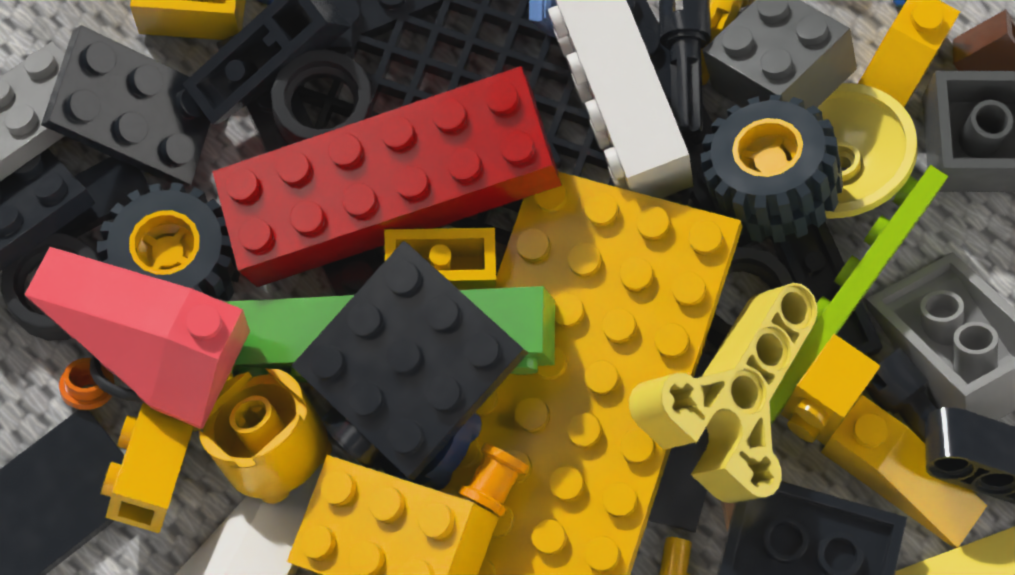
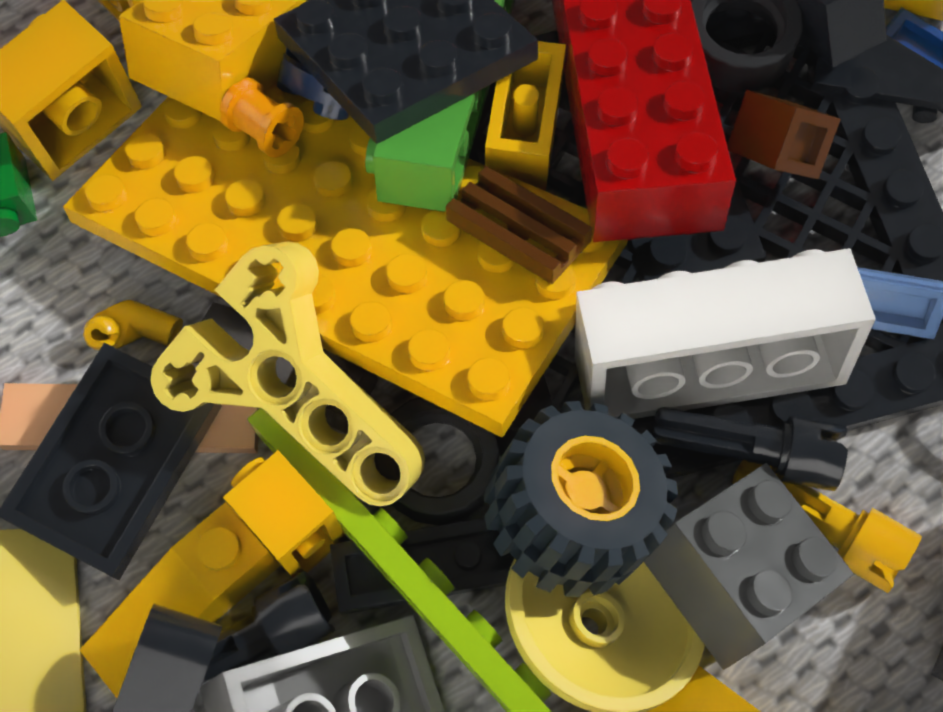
camera: 105 degrees right, 0 degrees up
(418, 60) = (782, 134): none -> reddish brown panel
(581, 200) = (526, 218): none -> reddish brown tile

